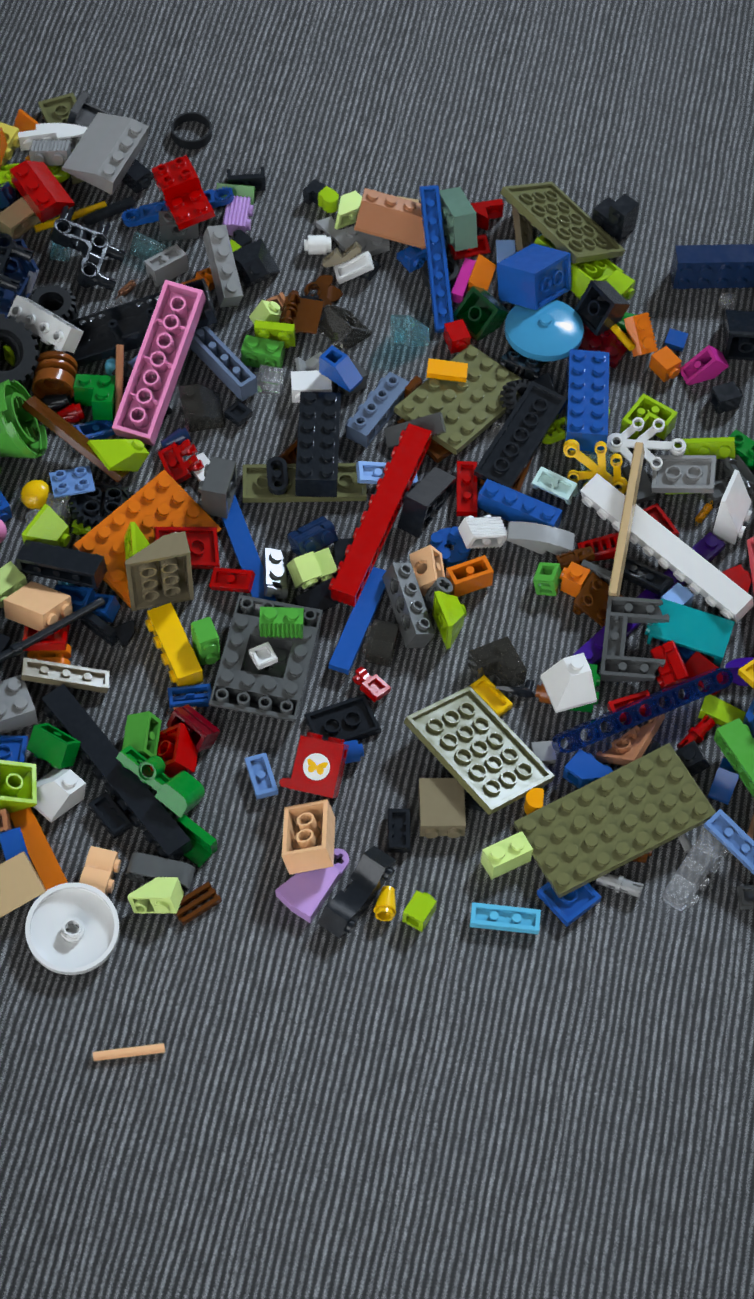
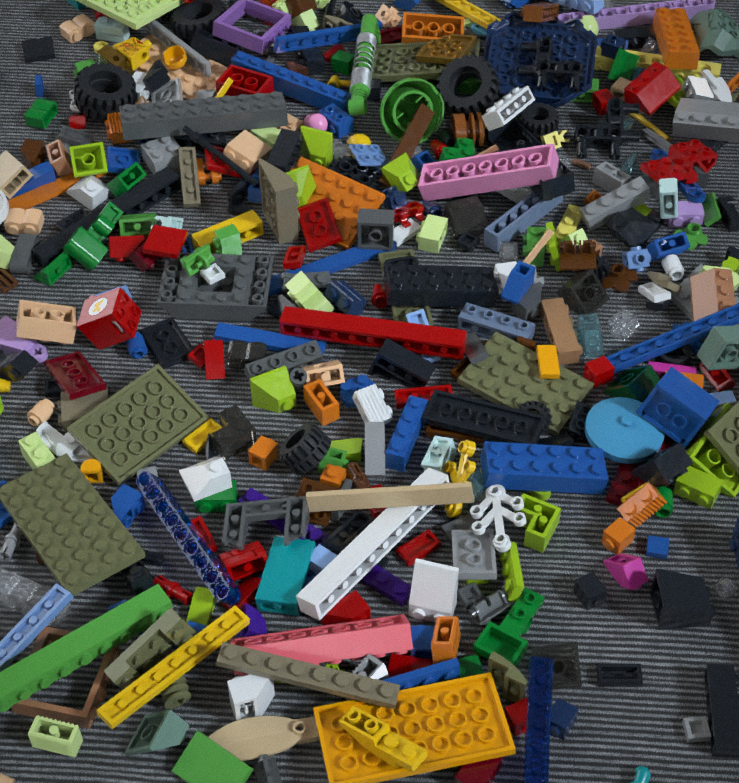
camera: 85 degrees right, 10 degrees down
(31, 240) = (600, 100): none -> red brick
(84, 305) = (555, 137): none -> light yellow plate
(152, 467) = (394, 198): none -> dark blue brick
(158, 700) = (173, 222): none -> light aqua hinge
(200, 699) = (165, 241): none -> red tile
(219, 442) = (432, 233): none -> yellowish green brick
(232, 322) = (569, 221): none -> light yellow plate
(238, 214) = (668, 198): none -> light aqua brick
(238, 658) = (197, 260): none -> bright green hips
(270, 220) = (694, 235): none -> bright green plate
(281, 622) = (239, 274): bright green brick -> none
(285, 348) = (538, 246): none -> light nougat bar
(291, 239) = (668, 245): none -> blue brick
(303, 270) = (636, 258): none -> medium blue brick
(309, 507) = (379, 296): none -> red cone
(389, 670) = (214, 359): none -> red slope
(392, 813) = (75, 375): none -> dark red tile
(394, 356) = (560, 330): none -> medium nougat brick
(399, 301) = (623, 324): none -> clear brick
(439, 853) = (41, 412): none -> light nougat brick
(488, 831) = (62, 444): none -> white plate
(525, 597) = (304, 448): none -> black tyre
(527, 568) = (352, 446): none -> lime slope
(527, 639) = (263, 453): none -> orange brick
(631, 744) = (157, 539): nougat wing -> none

